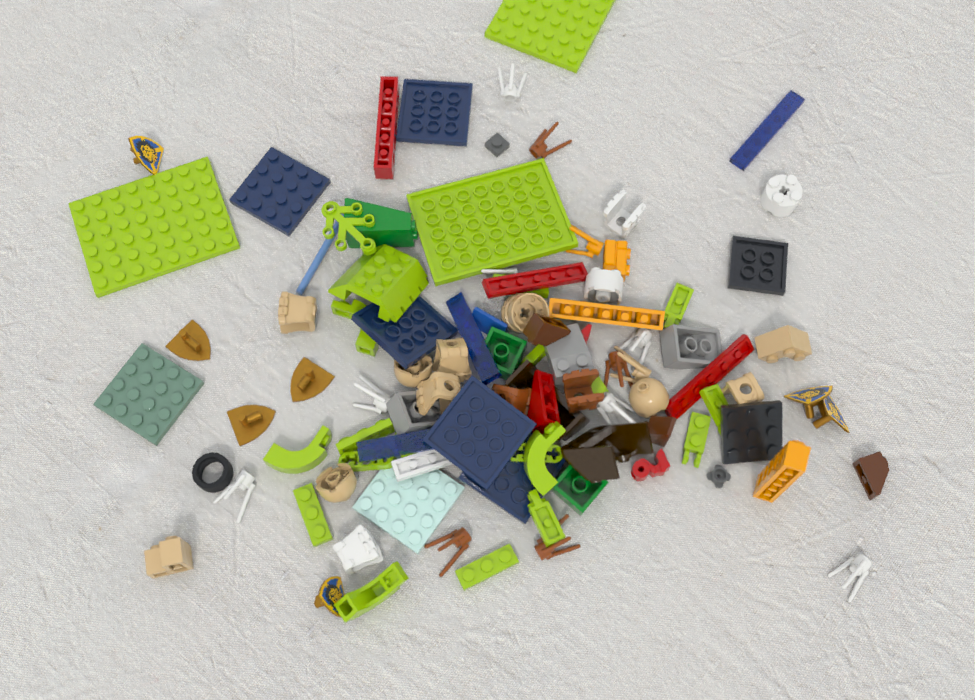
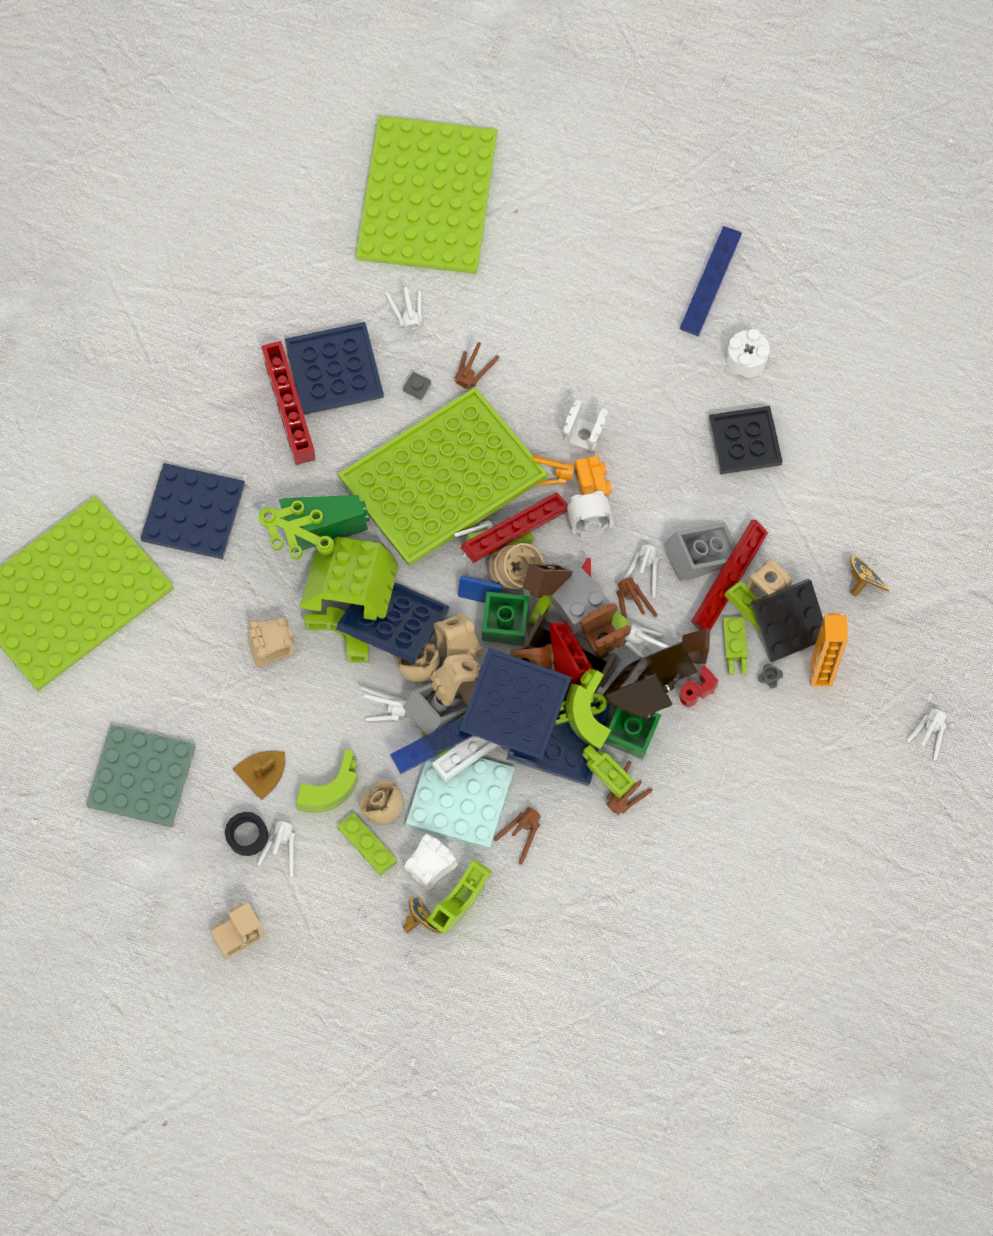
camera: 20 degrees left, 0 degrees up
(146, 152) = (26, 511): shield -> none
(191, 343) = (163, 709): pearl gold shield -> none
(308, 380) = (307, 709): pearl gold shield -> none
(317, 260) = (262, 603): medium blue bar -> none
(373, 465) = (387, 771): lime beam -> none
(381, 429) = (382, 759): lime plate -> none
(476, 344) = (466, 604): clear blue tile -> none
(486, 567) = (564, 839): lime plate -> none
(606, 313) = (602, 541): light orange brick -> none
(639, 372) = (657, 593): tan plant -> none
(648, 397) = (673, 616): tan cylinder -> none
(677, 304) = (673, 509): lime hinge -> none
(783, 343) = (795, 517): tan brick -> none
(810, 397) = (840, 566): shield -> none
(872, 473) = (922, 623): reddish brown slope -> none

